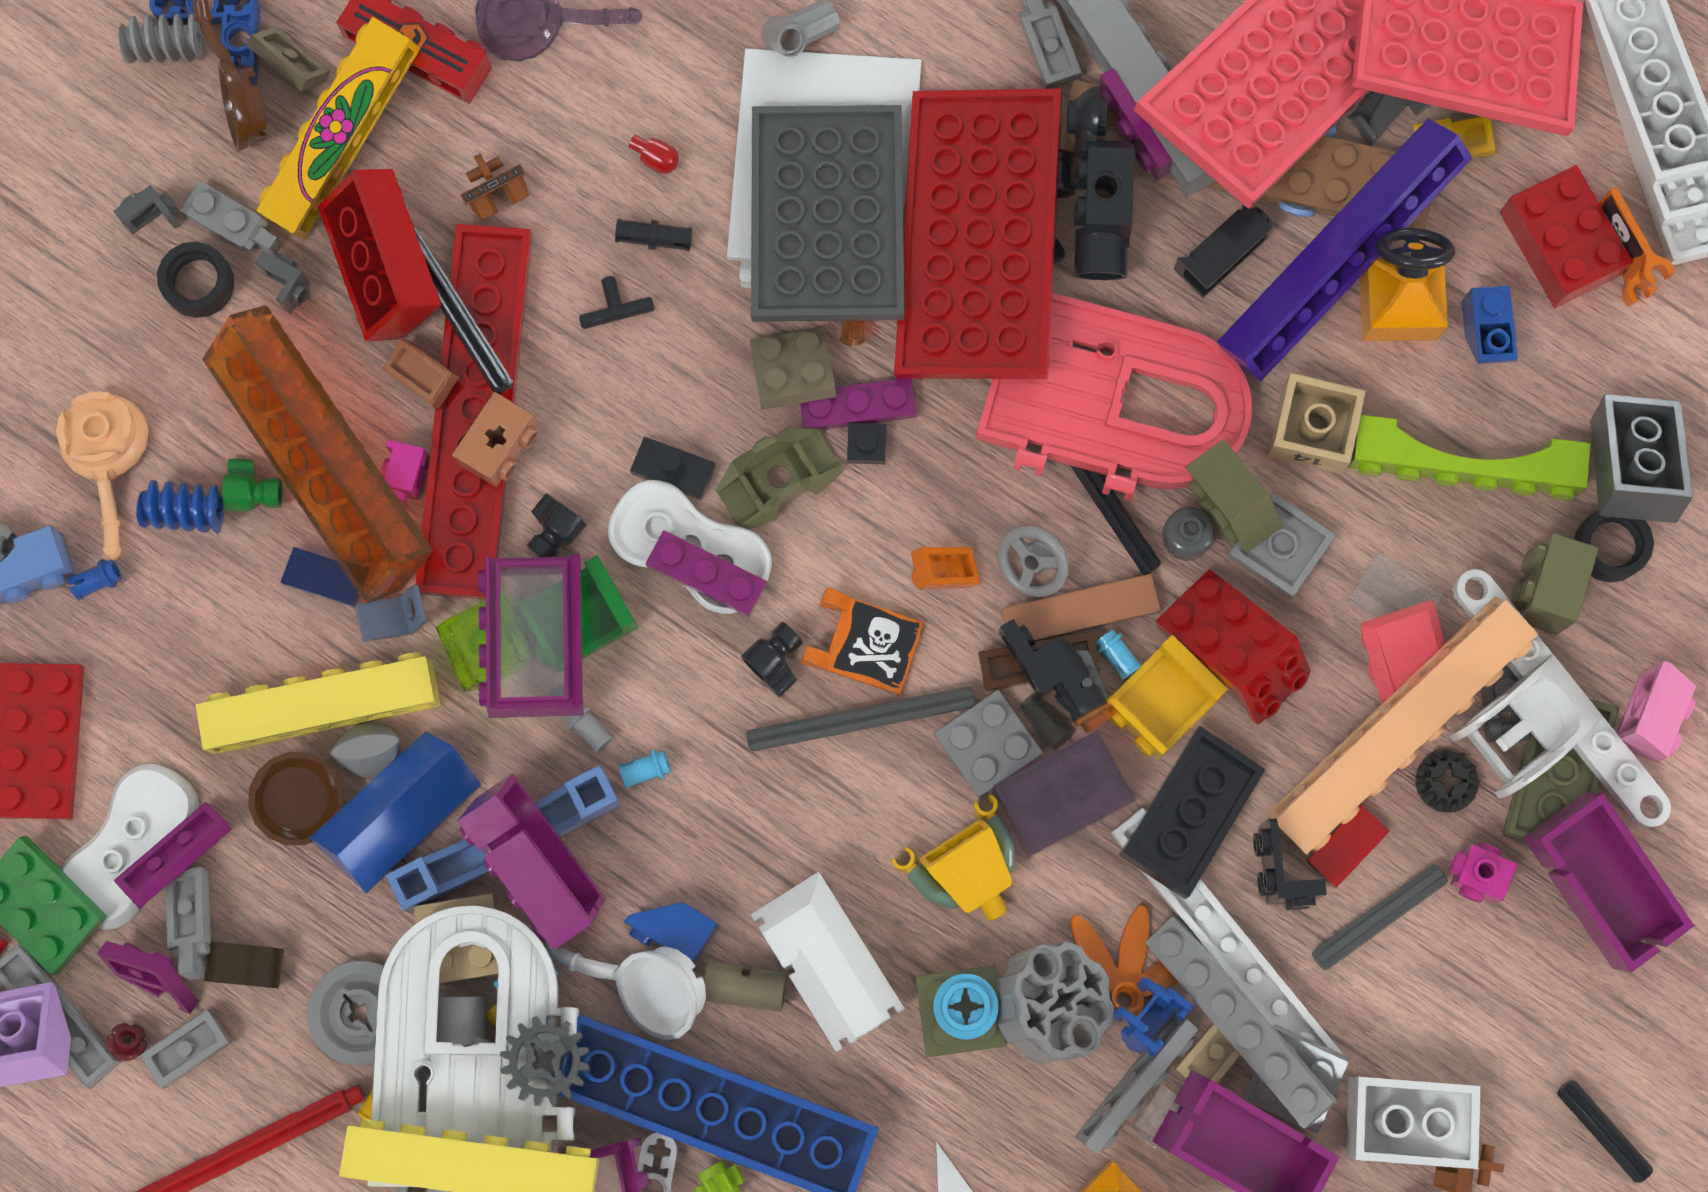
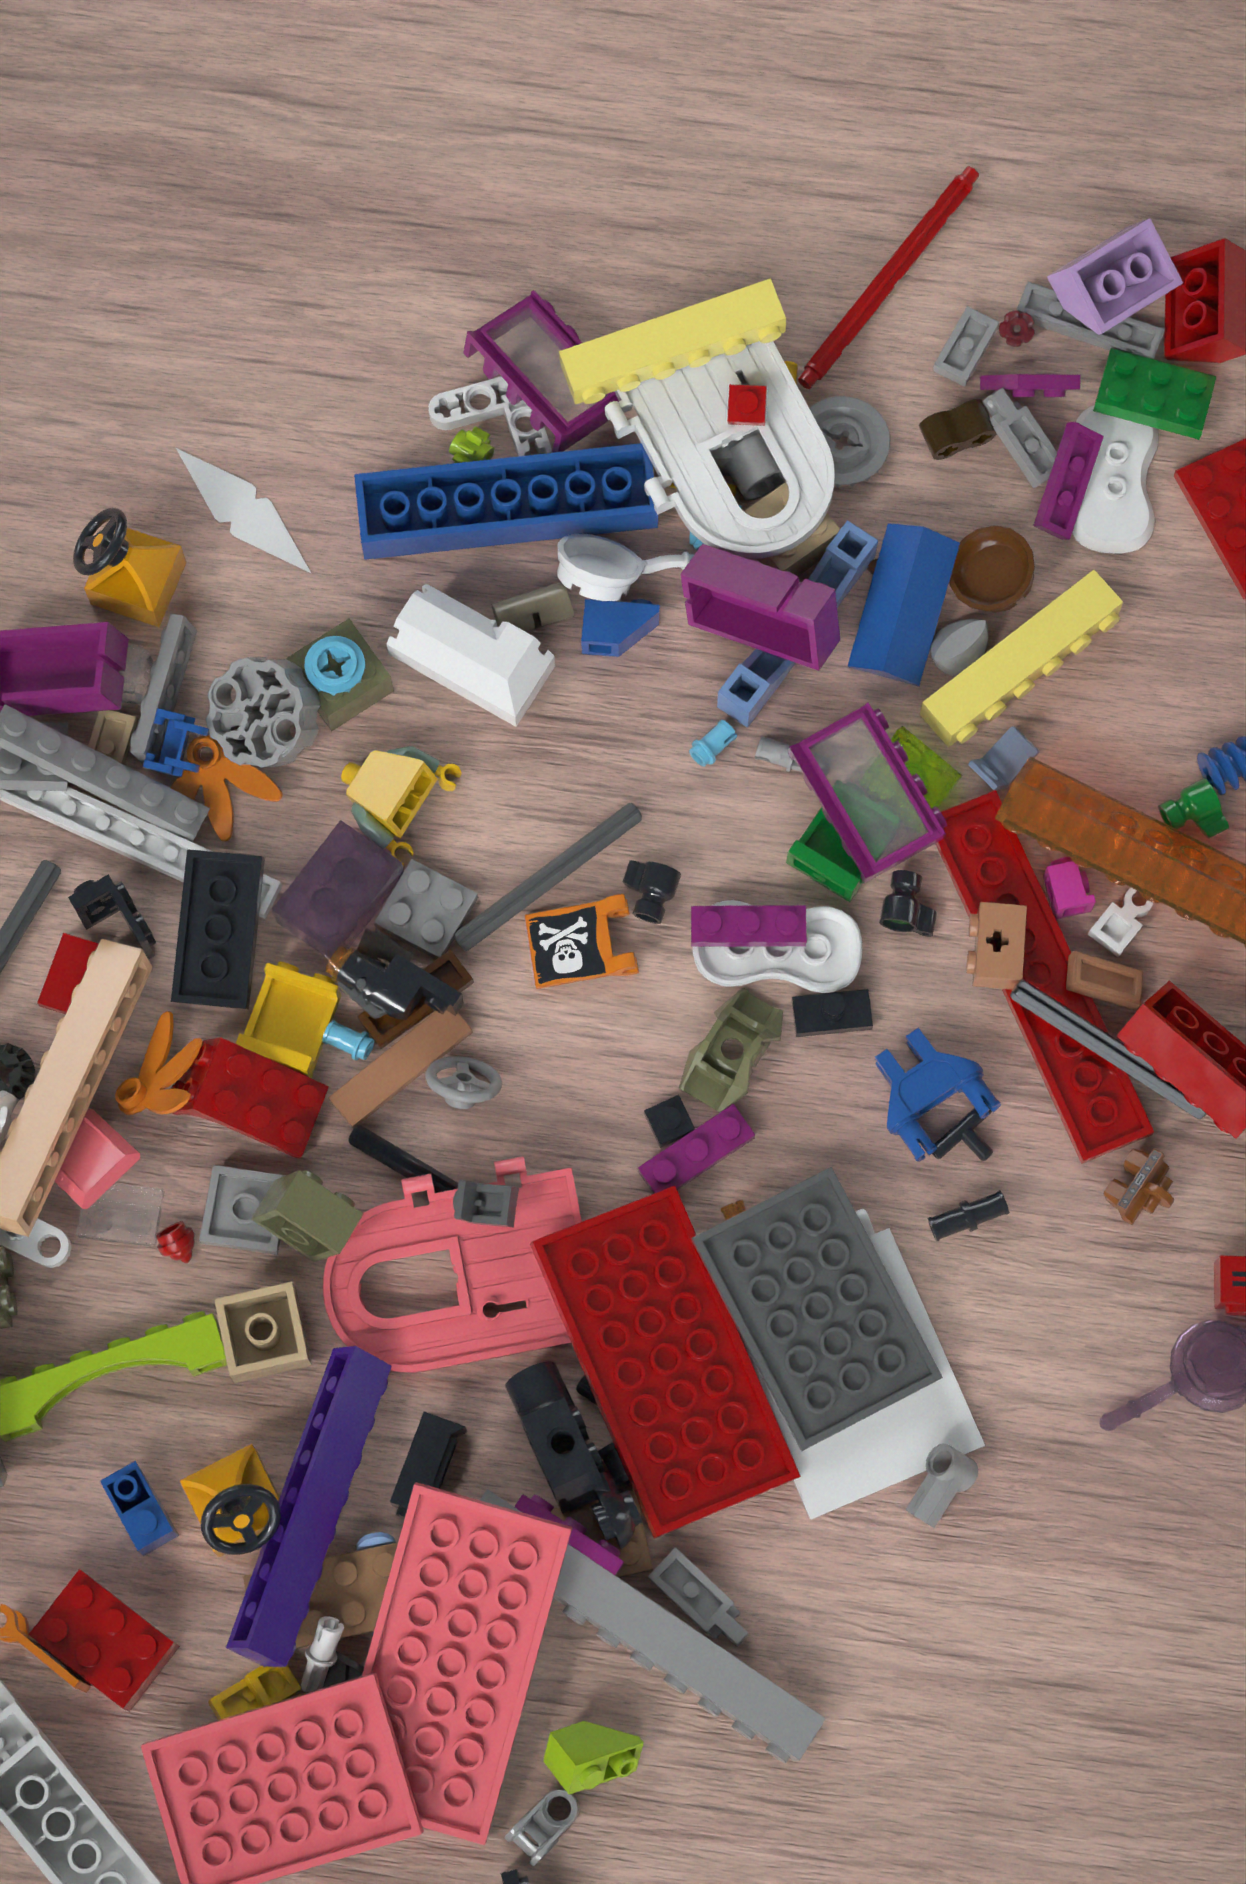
camera: 150 degrees right, 5 degrees down
(319, 577) = (1091, 766): clear blue tile -> none
(379, 417) = (1119, 926): none -> white plate
(434, 1064) = (747, 405): none -> red plate
(529, 1072) = (647, 440): dark grey gear -> none
(627, 357) = (927, 1086): none -> blue connector
(655, 154) = (1009, 1295): red cylinder -> none
(792, 368) = (771, 1151): dark tan plate -> none
(944, 568) = (538, 1033): orange tile -> none
(1069, 429) = (485, 1204): none -> dark grey bracket
(1188, 533) = (337, 1170): dark grey head -> none
(1315, 698) = (150, 1087): none -> orange plant
(1356, 548) = (176, 1242): none -> red plate
(1385, 136) = (321, 1653): none -> white axle

